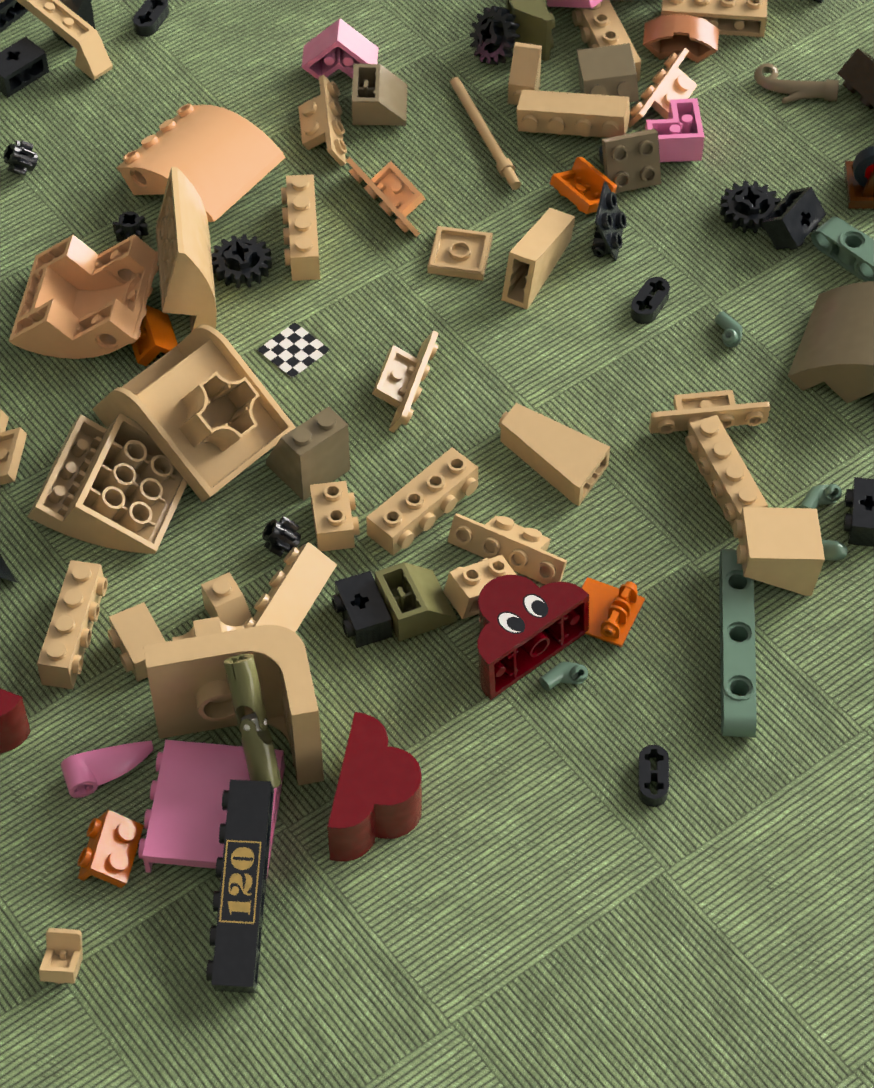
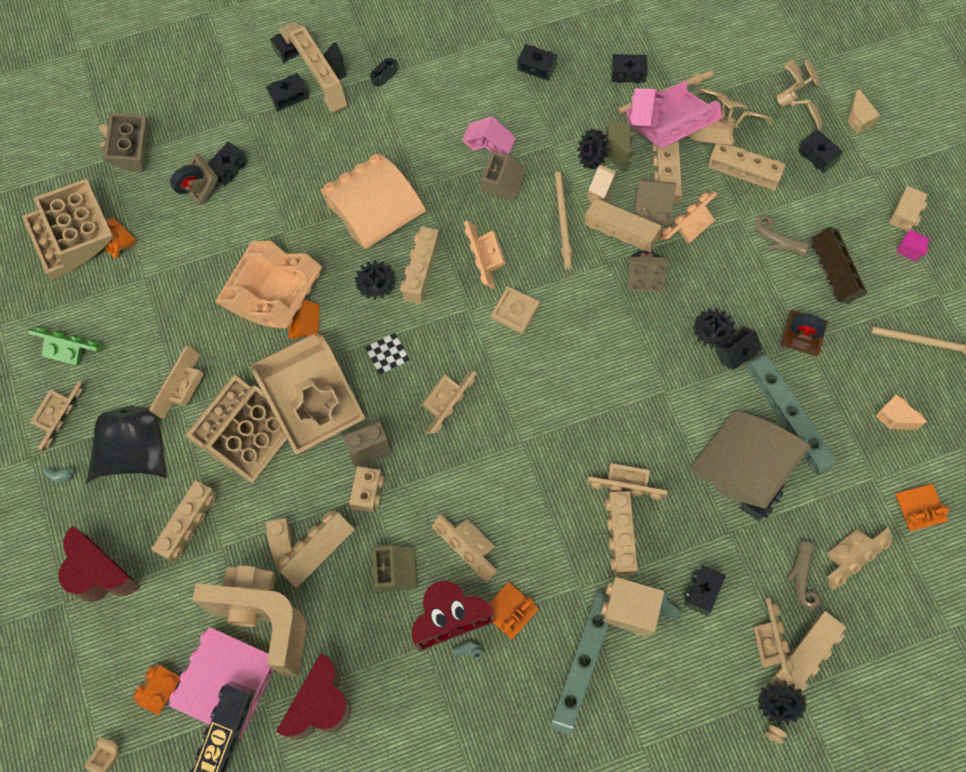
camera: 20 degrees right, 15 degrees up
(20, 157) = (266, 163): black gear -> none
(96, 767) = (171, 629): bright pink piece -> none
(130, 224) = (320, 236): black gear -> none
(130, 632) = (219, 548): tan brick -> none
(185, 253) = (335, 277): tan slope -> none
(256, 736) = (251, 648): olive piece -> none
(281, 536) = (329, 496): black gear -> none
(322, 121) = (462, 185): tan bracket -> none
(362, 609) = (359, 552): black brick -> none
(422, 501) = (425, 495): tan brick -> none
(467, 582) = (439, 569): tan brick -> none
(536, 257) = (560, 329): tan slope -> none
(555, 451) = (521, 483): tan slope -> none
(582, 185) = (610, 283): orange bracket -> none
(609, 225) = (615, 318): black hinge -> none
(645, 297) = (626, 384): black beam -> none
(646, 775) = (492, 740): black beam -> none
(678, 31) = (716, 179): nougat brick -> none
(681, 134) = (686, 262): bright pink brick -> none
(732, 329) = (668, 420): sand green arm -> none
(821, 495) = (677, 565): sand green arm -> none

